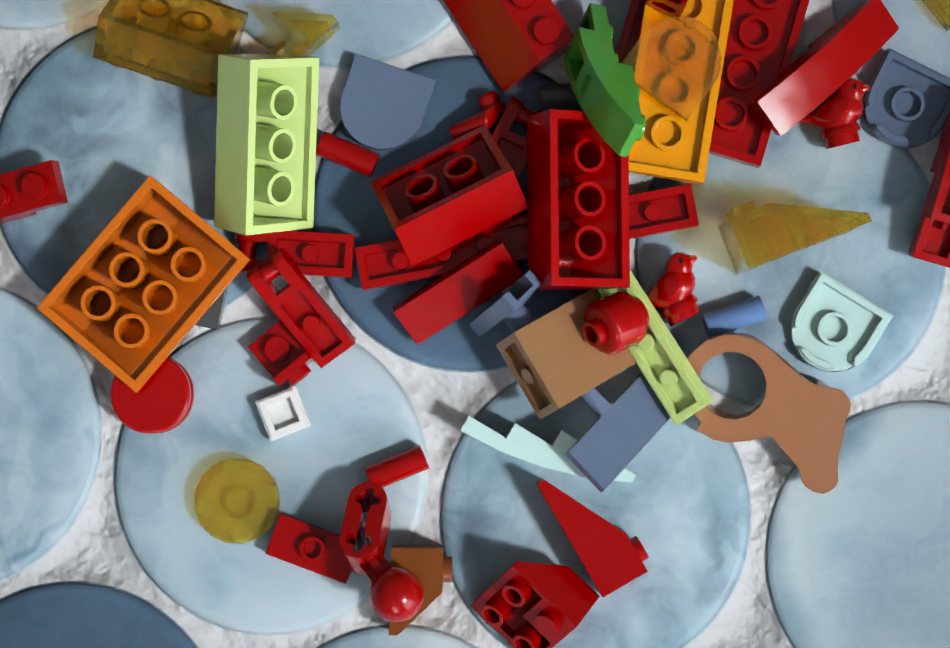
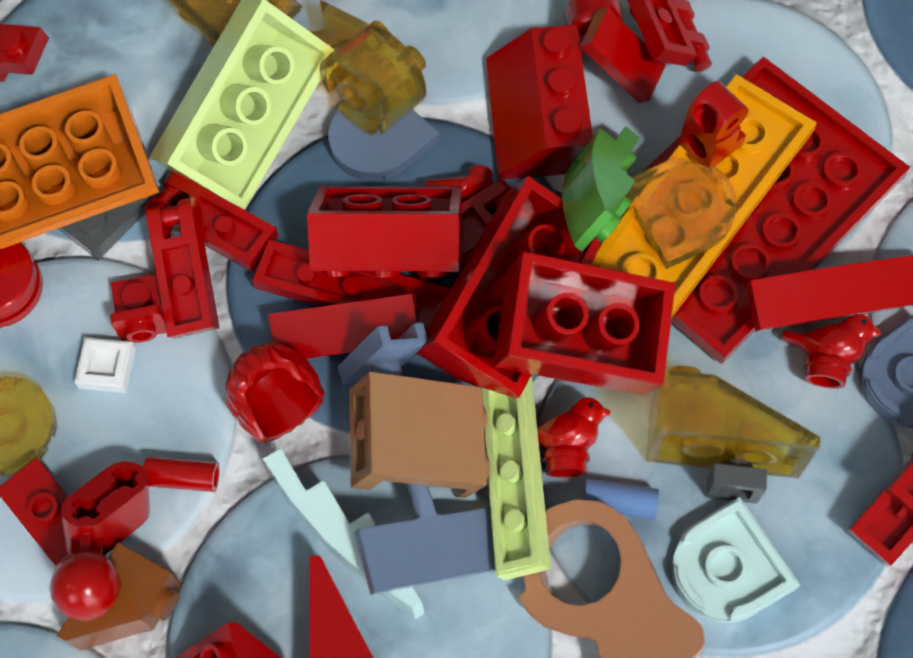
camera: 30 degrees right, 20 degrees down
(347, 154) = (316, 158): red axle -> none
(368, 69) = (375, 78): none -> clear yellow brick
(432, 372) = (272, 391): none -> red hair
(616, 321) = (485, 425): red head -> none
(656, 215) = (585, 324): none -> red brick
(813, 260) = (736, 479): none -> dark grey plate

